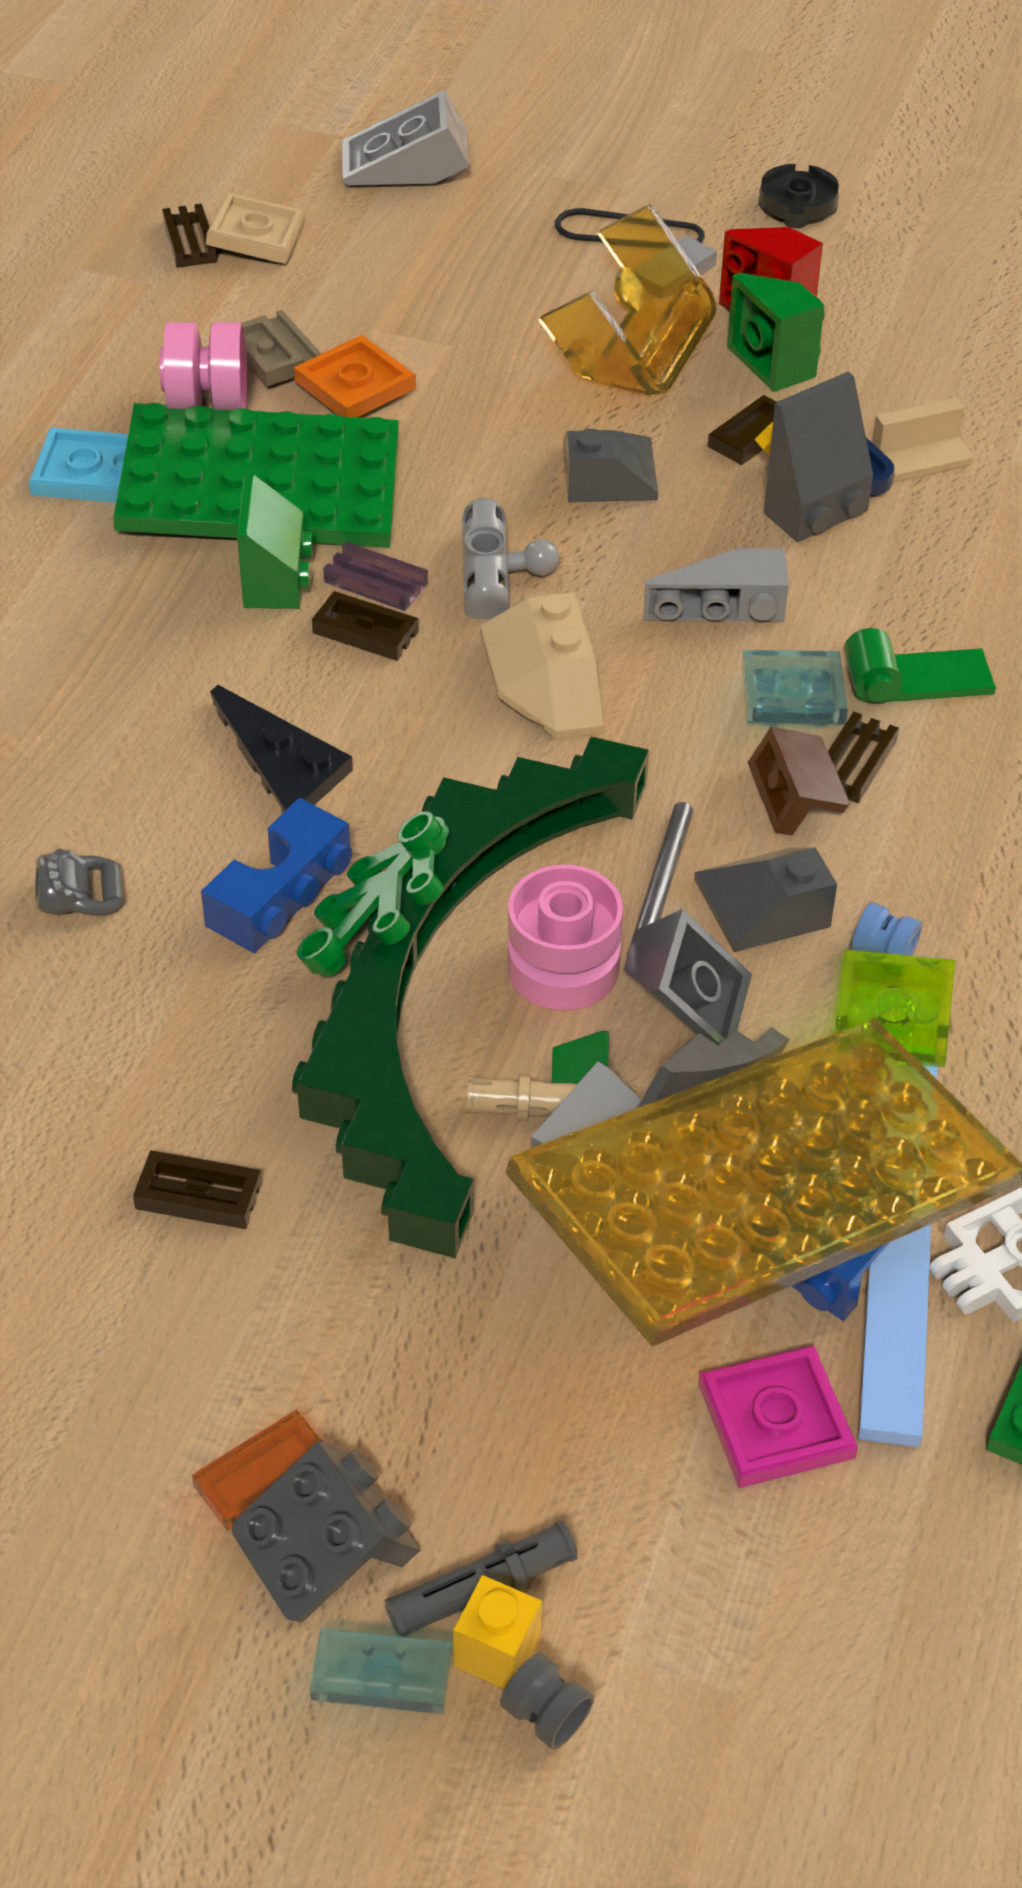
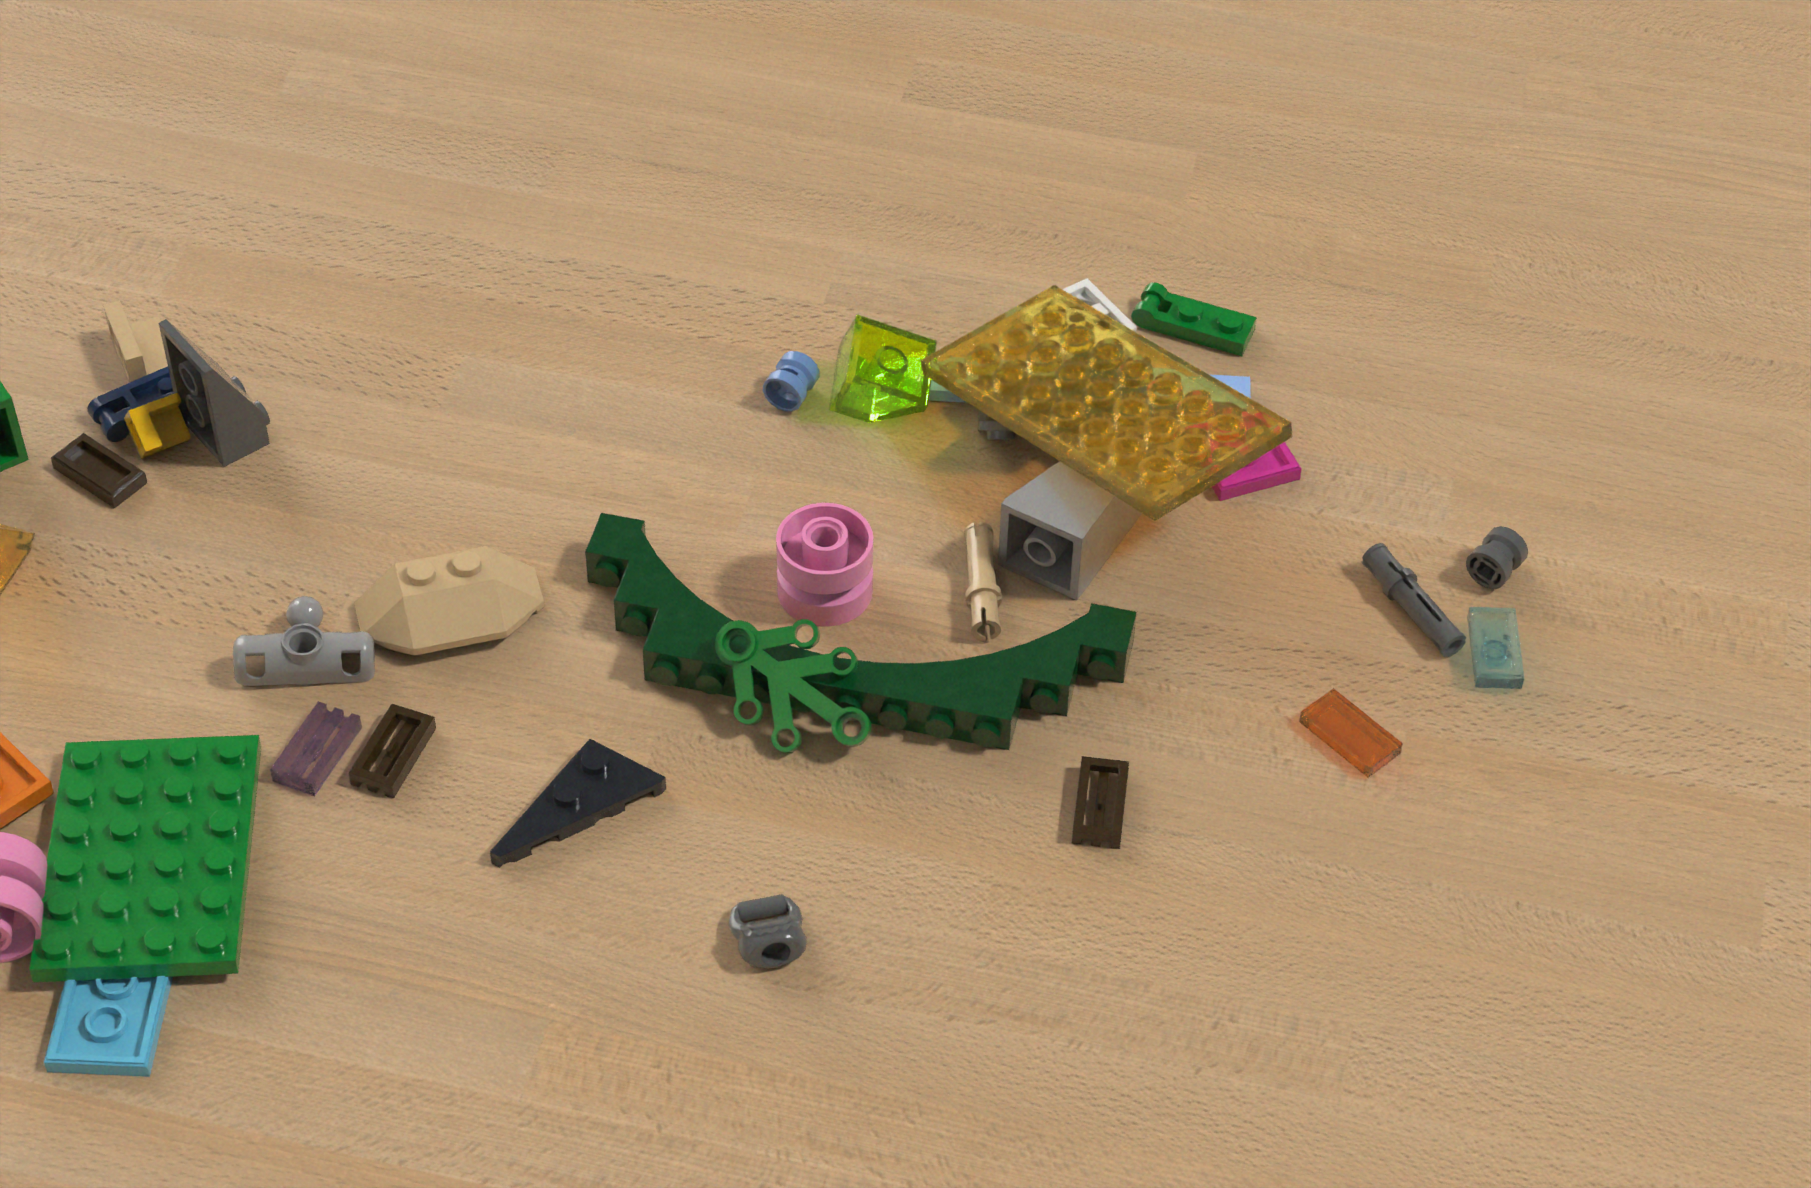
camera: 95 degrees left, 0 degrees up
(257, 903) = (722, 753): blue arch -> none
(271, 548) = (300, 822): green slope -> none
(321, 1529) = (1402, 684): dark grey bracket -> none
(496, 1632) = (1459, 579): yellow brick -> none
(576, 1058) = (942, 563): green slope -> none
(609, 466) = (150, 578): dark grey slope -> none
(665, 865) = (708, 522): flat silver bar -> none
(690, 975) = (859, 492): dark grey slope -> none
(705, 1061) = (988, 450): dark grey slope -> none
(726, 587) = (356, 476): light grey slope -> none
(769, 896) = (742, 452): dark grey slope -> none
(794, 687) = (494, 434): clear light blue plate -> none
(794, 776) = (614, 434): reddish brown panel -> none
(867, 732) = (575, 398): dark brown tile -> none
(891, 677) = (464, 362): green door -> none

